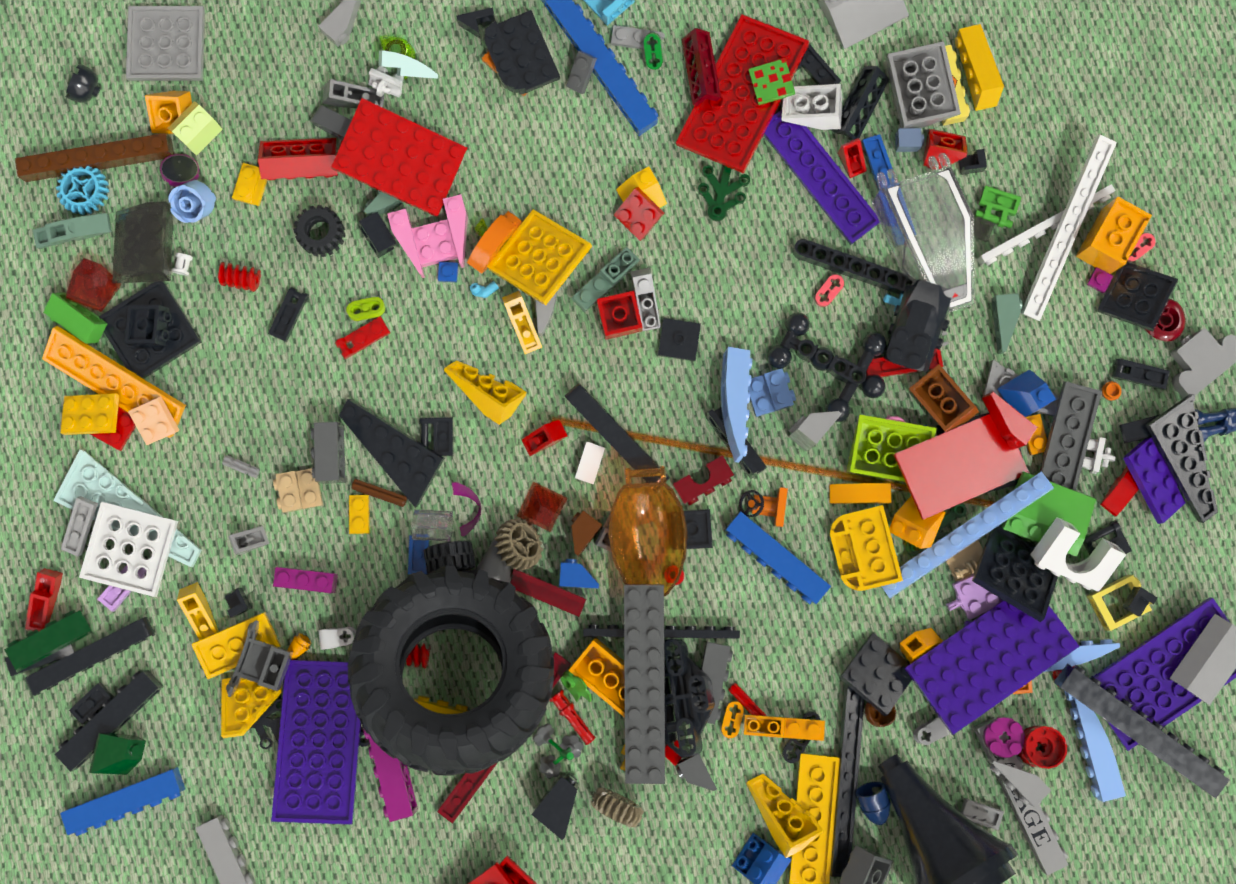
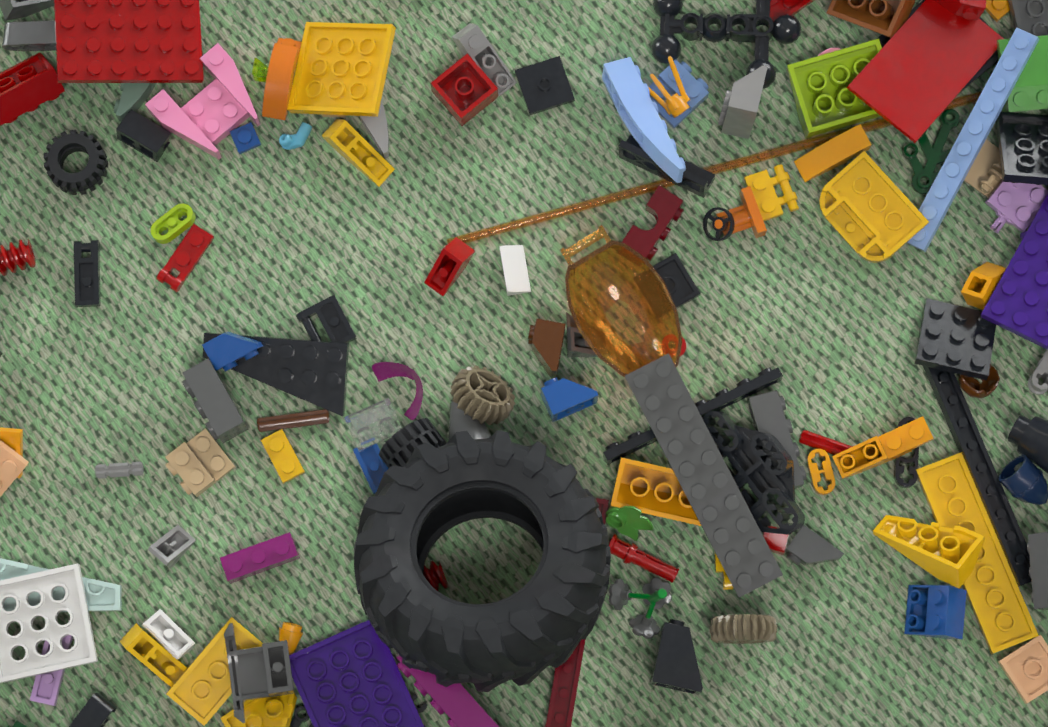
camera: 25 degrees left, 5 degrees down
(214, 602) = (168, 634): none -> white slope
(237, 602) = (194, 623): black panel -> none
(334, 637) = (324, 607): white piece -> none
(357, 420) = (229, 348): none -> blue slope
(491, 397) = (368, 252): yellow wedge -> none
(542, 507) = (486, 344): clear red slope -> none
(547, 593) = (551, 433): dark red fence -> none
(606, 279) = (428, 58): sand green slope -> none
(611, 431) = (519, 219): black beam -> none
(764, 402) = (674, 104): none -> light orange plant
(778, 558) = (778, 269): blue brick -> none
(796, 499) = (765, 193): none -> yellow plate
(911, 528) = (908, 158): light orange slope -> none

